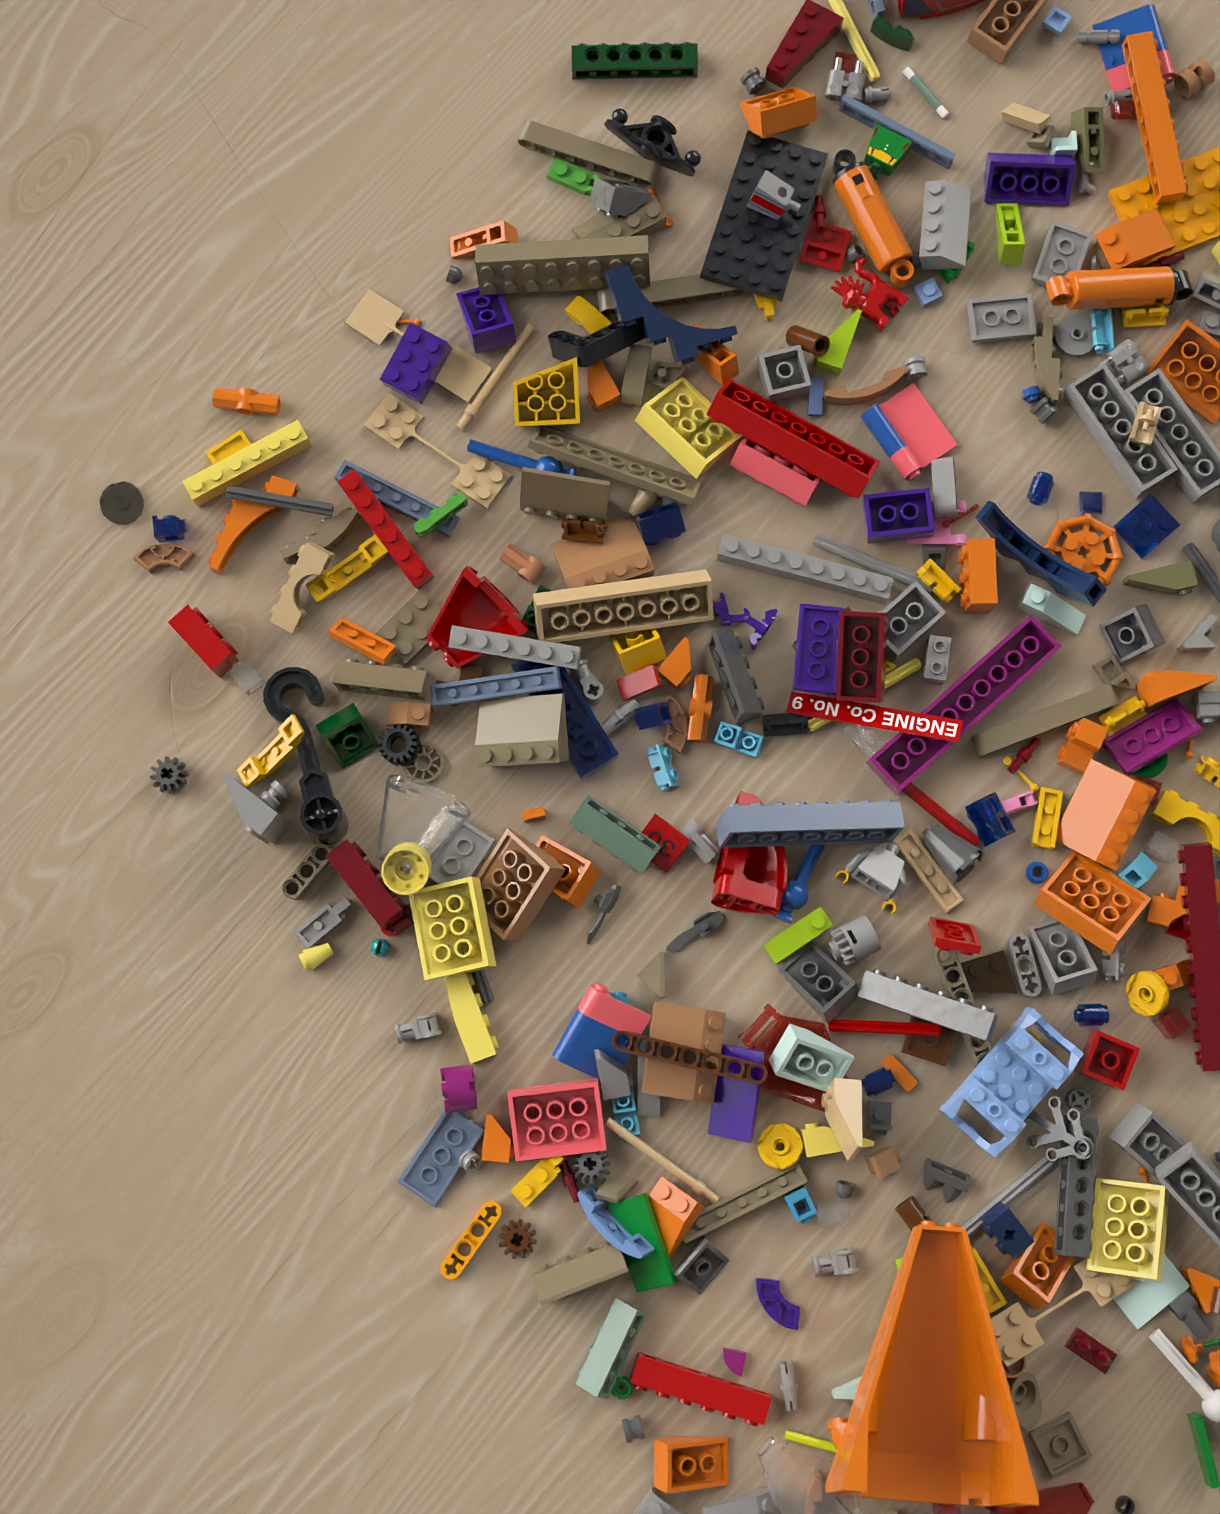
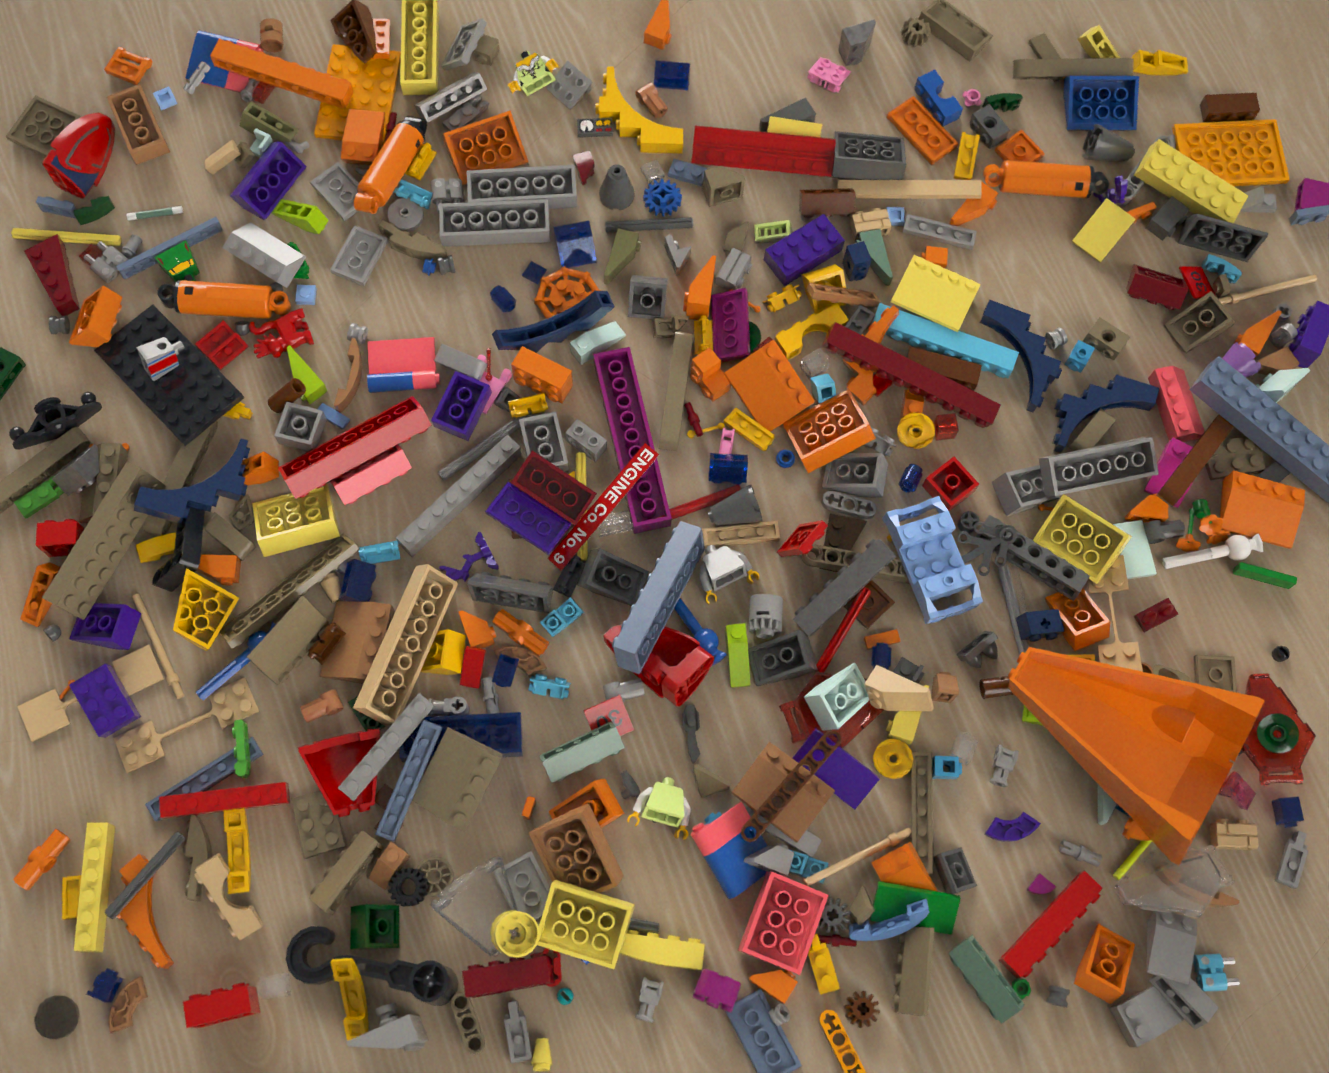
camera: 65 degrees left, 10 degrees down
(362, 640) = (304, 871): orange plate -> none
(542, 221) = (58, 538): none -> red brick
(607, 943) = (664, 805): none -> yellowish green torso
(702, 526) = (380, 552): none -> medium azure hinge
(807, 767) = (612, 577): none -> dark grey slope
(819, 213) = (194, 334): dark red bar -> none
(844, 1189) = (950, 728): dark grey hinge -> none
(1145, 423) = (502, 200): tan hips -> none

